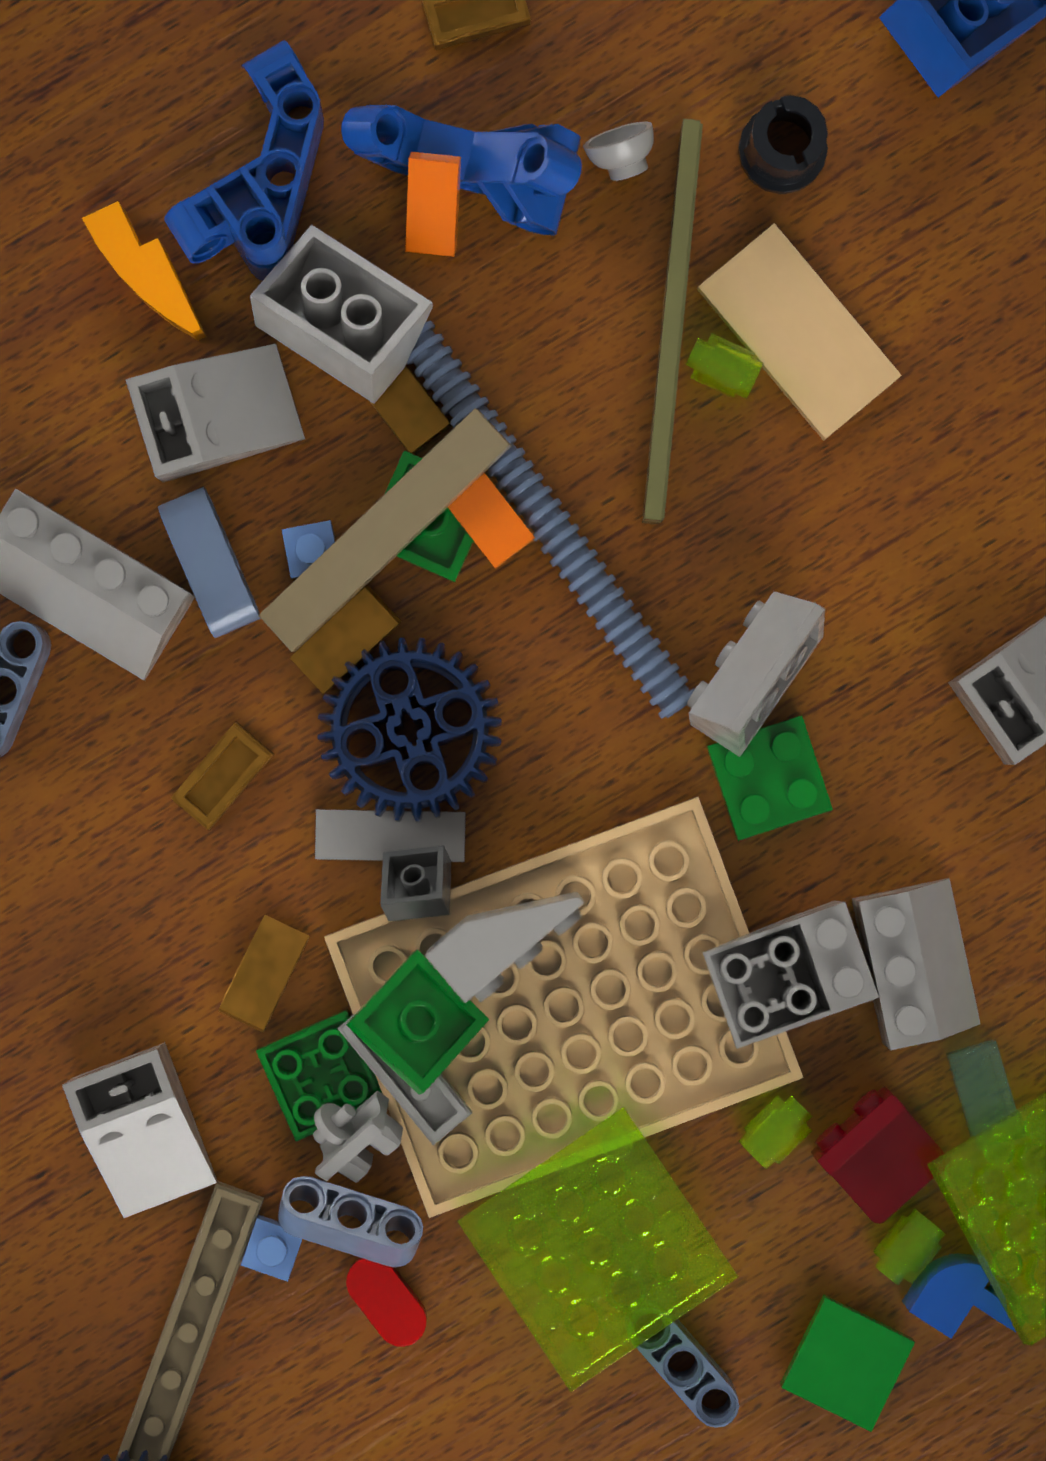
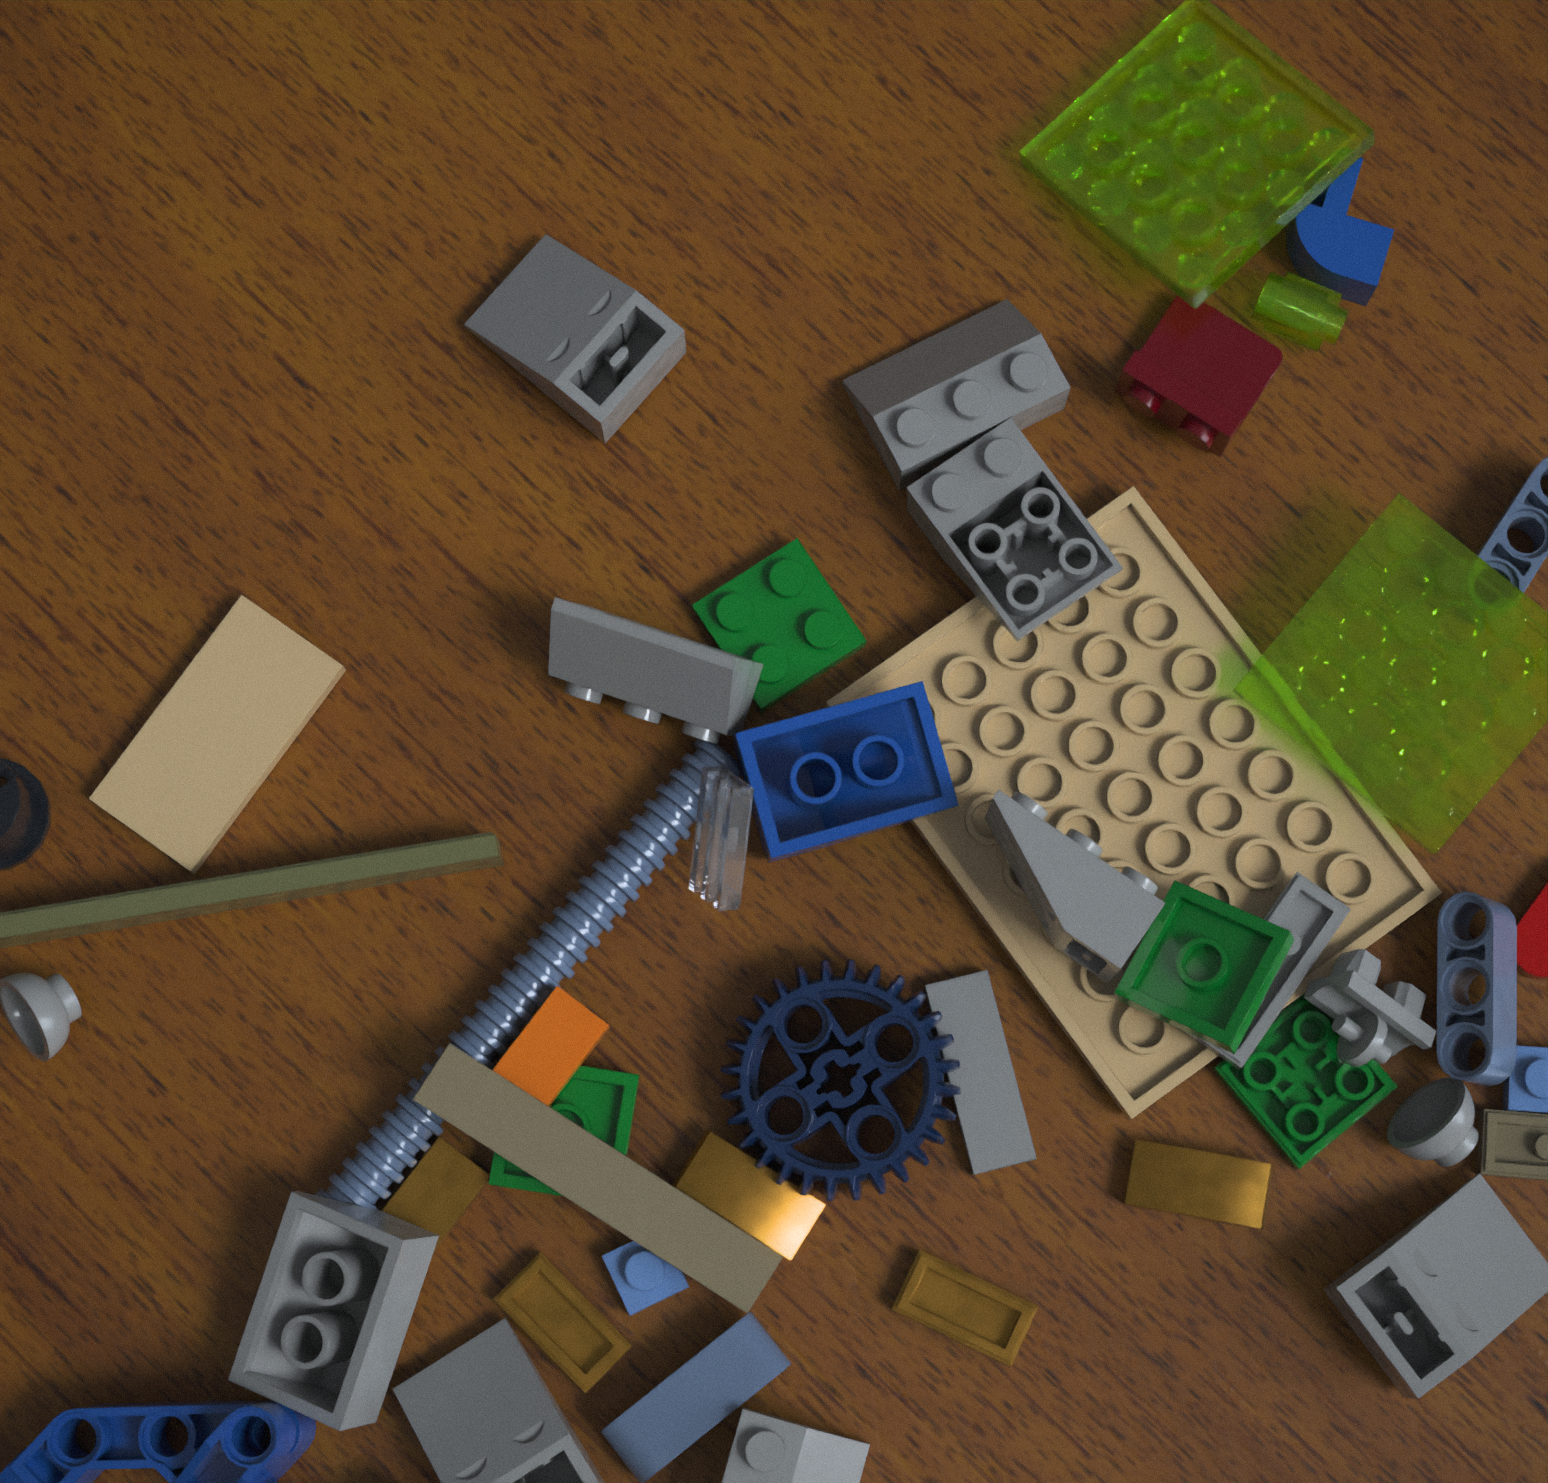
camera: 100 degrees left, 10 degrees down
(260, 1160) = (1435, 1123): none -> light grey piece
(290, 480) = (563, 1322): none -> pearl gold tile
(416, 883) = (1031, 1018): dark grey piece -> none
(432, 203) = (164, 1230): orange tile -> none
(518, 167) = (93, 1132): blue connector -> none
(613, 689) = (721, 838): none -> clear tile
(638, 795) = (845, 771): none -> blue slope
(724, 366) = (283, 812): clear neon green brick -> none
(776, 1131) = (1207, 501): clear neon green brick -> none
(847, 1363) = (1460, 346): green tile -> none
(981, 1085) = (1081, 278): clear light blue tile -> none

